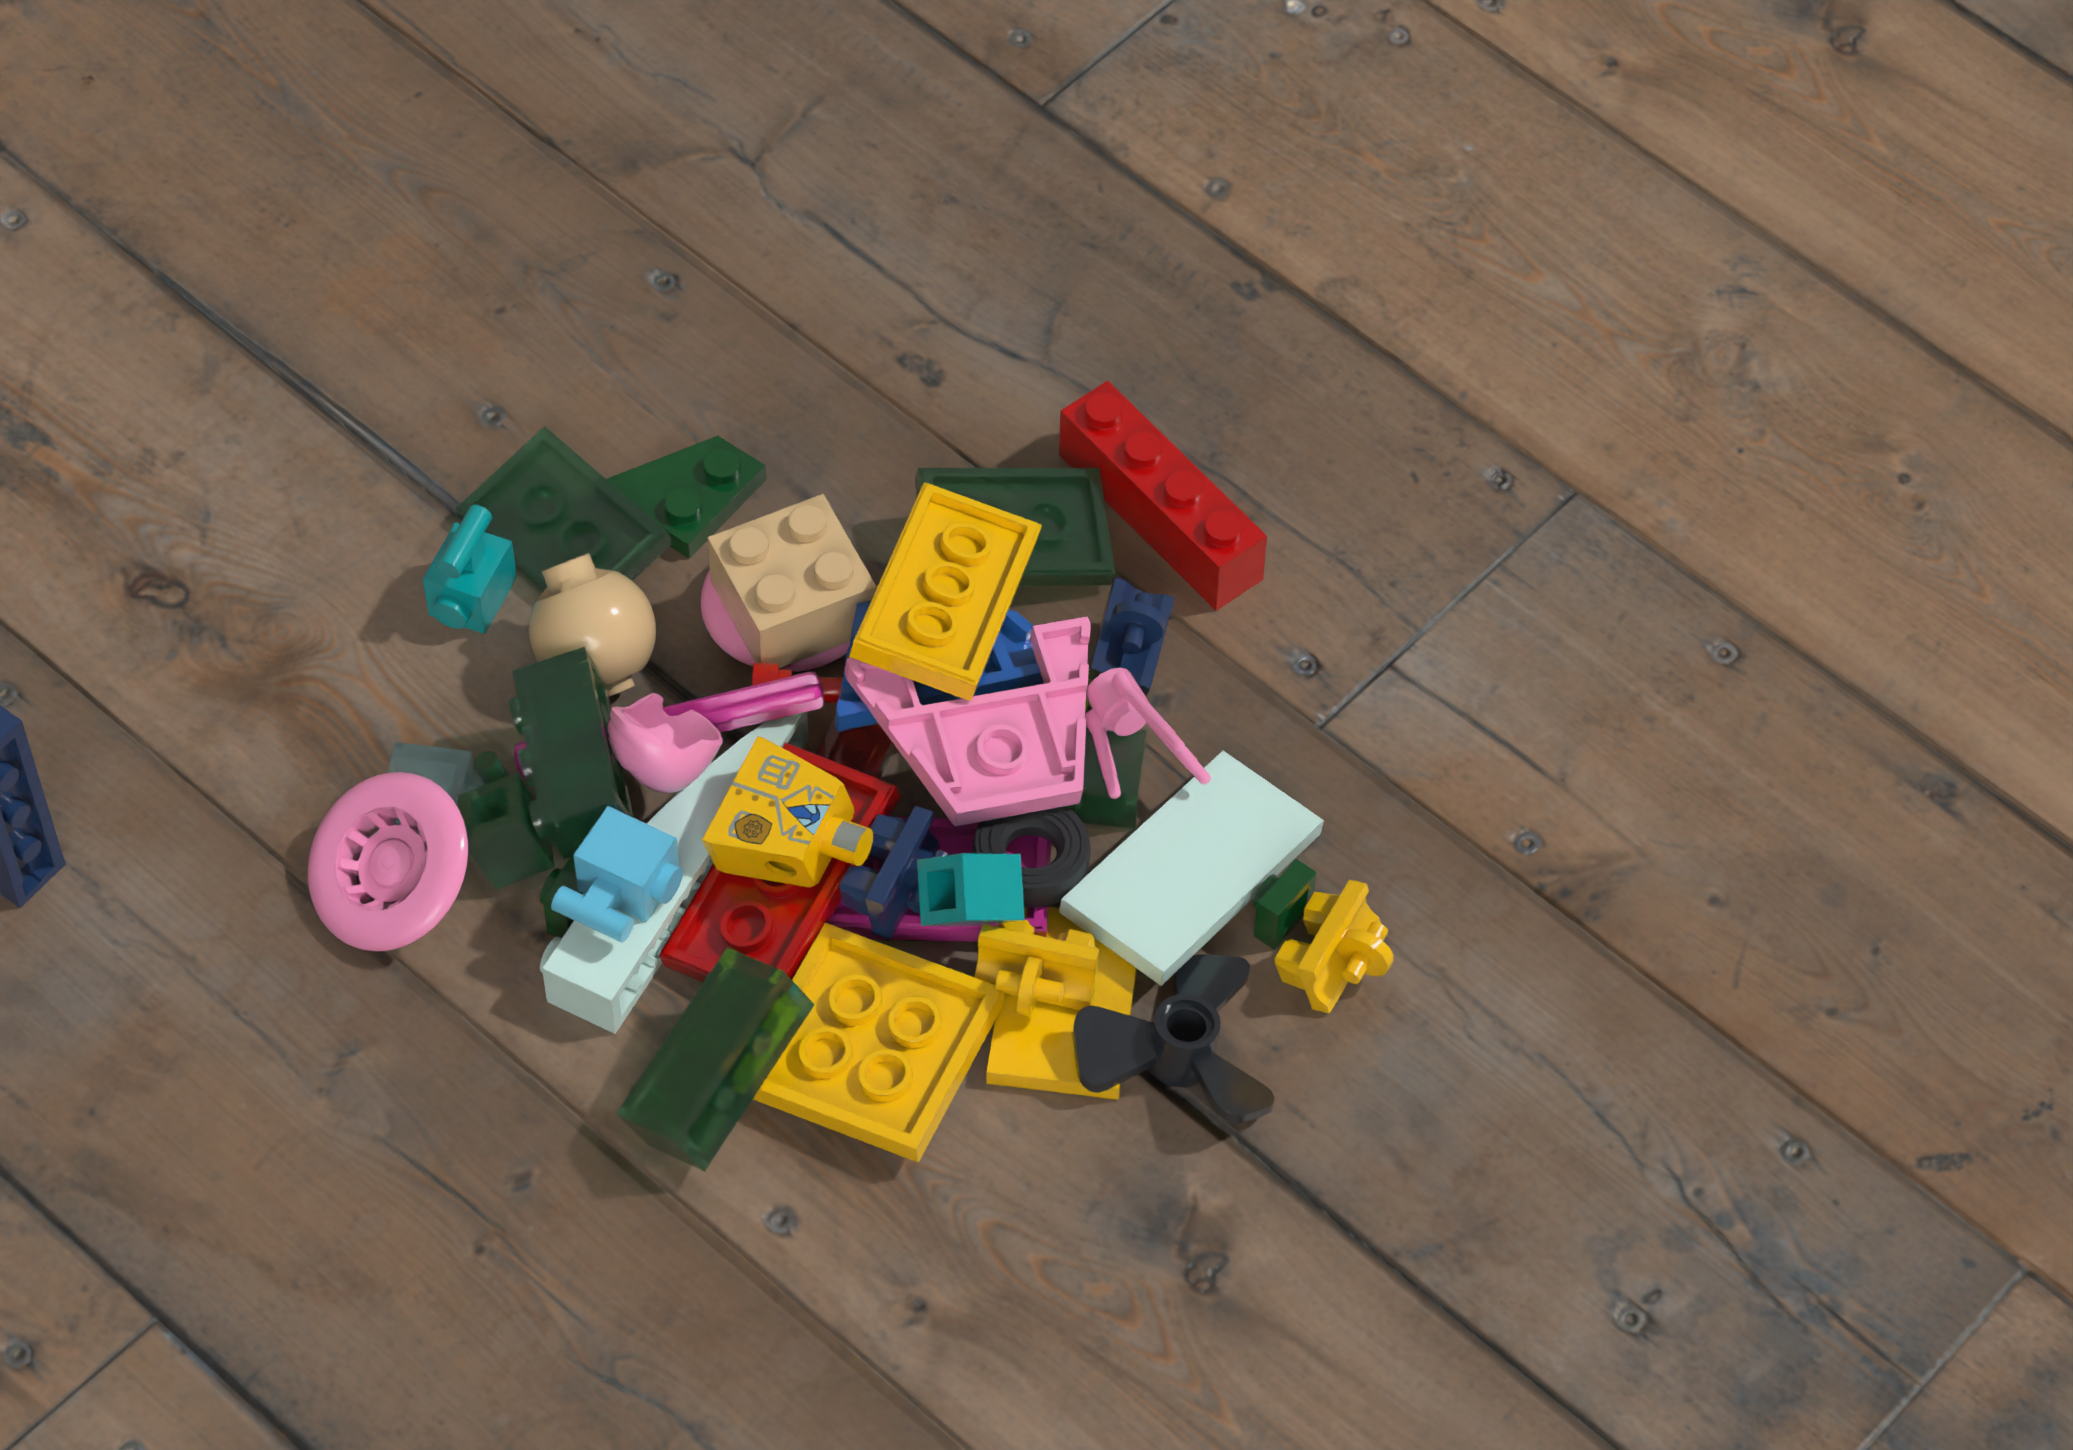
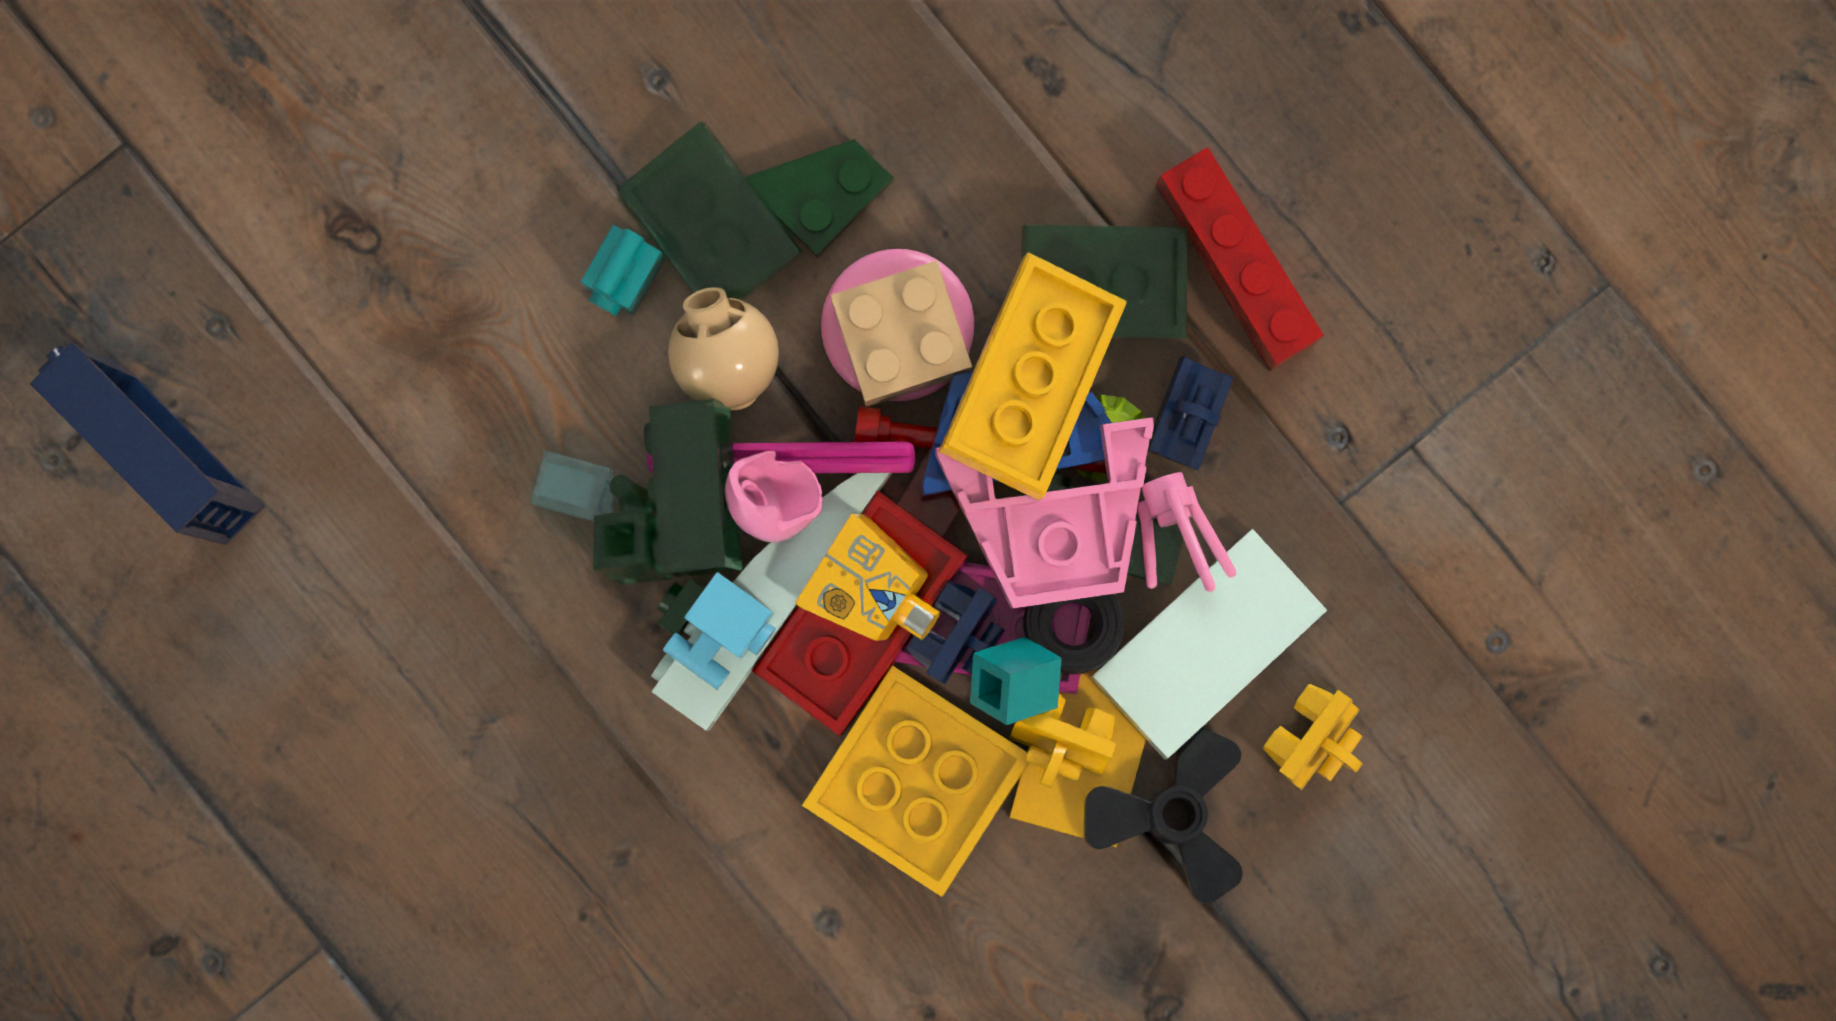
camera: 10 degrees right, 30 degrees up
(405, 867) = (544, 559): bright pink wheel -> none
(715, 1058) = (785, 796): clear green brick -> none
(1282, 903) = (1278, 690): dark green plate -> none

